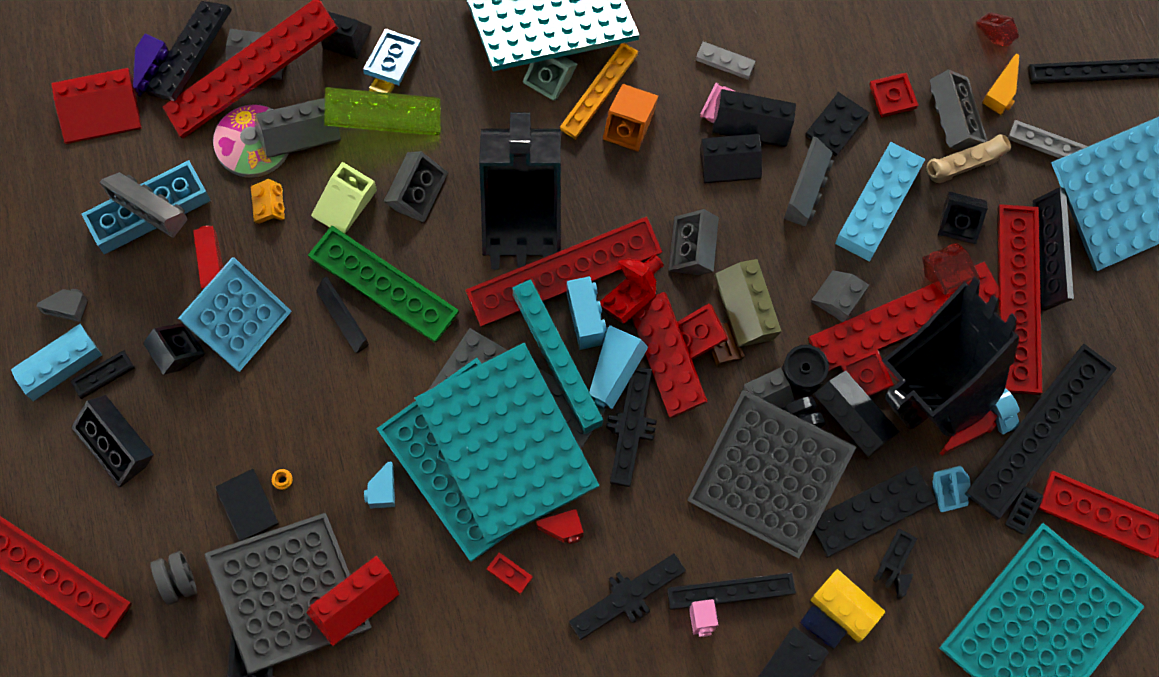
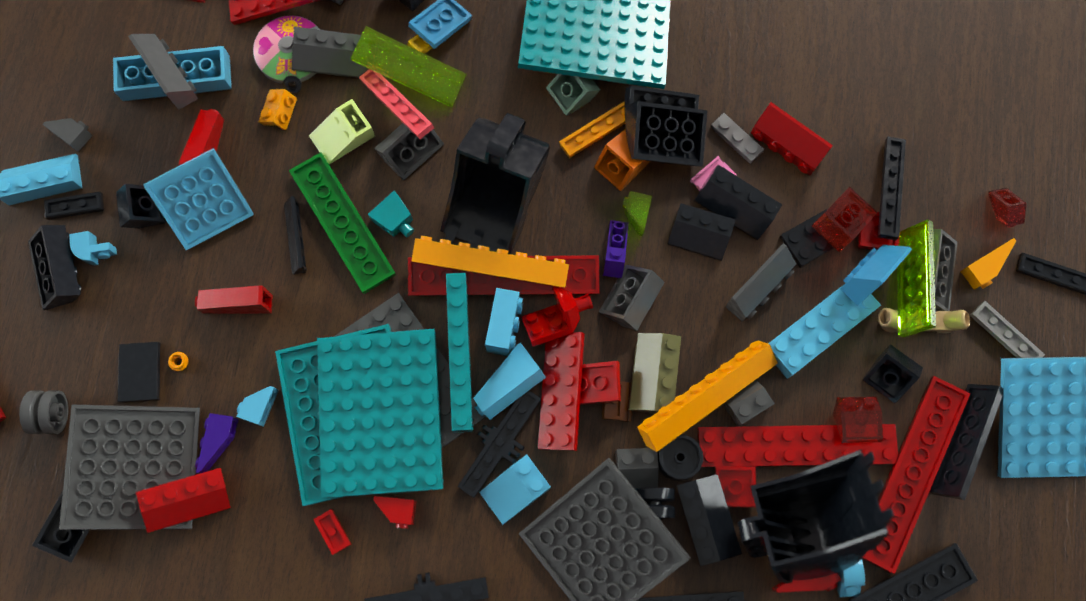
camera: 25 degrees right, 5 degrees up
(140, 411) = (85, 247): none -> medium azure brick
(276, 172) = (296, 88): none -> black plate
(312, 398) = (235, 300): none -> red slope
(357, 532) = (218, 436): none -> dark purple slope
(388, 149) = (397, 103): none -> coral plate
(431, 258) = (392, 216): none -> teal torso
(548, 262) = (489, 262): none -> light orange brick
(655, 73) = (665, 126): none -> black slope
(659, 206) = (616, 249): none -> dark purple slope
(663, 162) = (637, 210): none -> clear neon green slope
(665, 461) = (515, 489): none -> medium azure slope
(776, 41) = (790, 139): none -> red slope
(805, 302) = (707, 395): none -> light orange brick
(858, 95) = (844, 219): none -> clear red slope
(888, 51) = (891, 188): none -> black plate
(905, 130) = (873, 271): none -> dark azure slope
(946, 123) = (916, 280): none -> clear neon green plate

